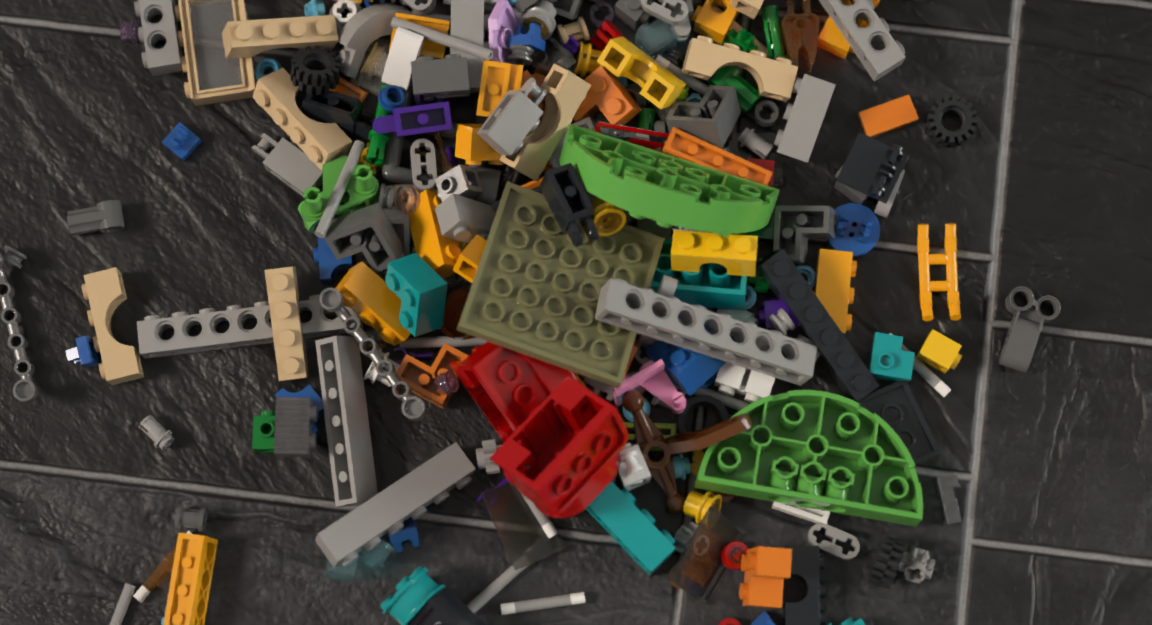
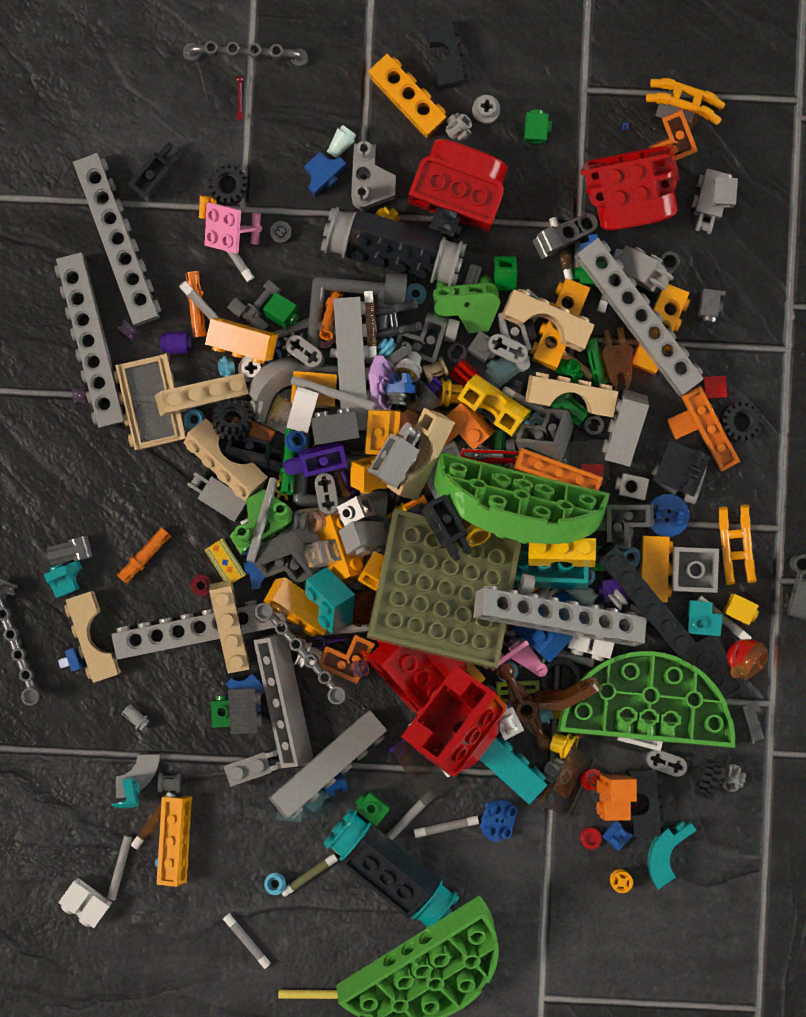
camera: 10 degrees left, 10 degrees up
(85, 251) = (63, 578): none -> teal brick
(140, 520) = (131, 788): none -> teal plate
(151, 509) = (143, 771): none -> light grey tile
(181, 141) = (130, 482): blue tile -> none
(188, 231) = (141, 558): none -> orange pin
(249, 268) = (196, 580): none -> dark red plate
(290, 246) = (225, 561): none -> yellow tile
(298, 508) = (251, 767): none -> light grey hinge
(411, 235) = (322, 554): none -> clear brick
(448, 569) = (372, 807): none -> green brick
(483, 456) = (397, 718): light grey gear -> none
(615, 605) = (498, 820): none -> blue plate
(755, 143) = (586, 450): light grey pin -> none
(819, 183) = (641, 486): none -> light grey brick
(882, 296) = (694, 569): none -> light grey brick
(912, 126) = (710, 428): none -> orange tile
(920, 78) = (715, 387): none -> red tile
(944, 413) = (746, 658): none -> clear orange piece

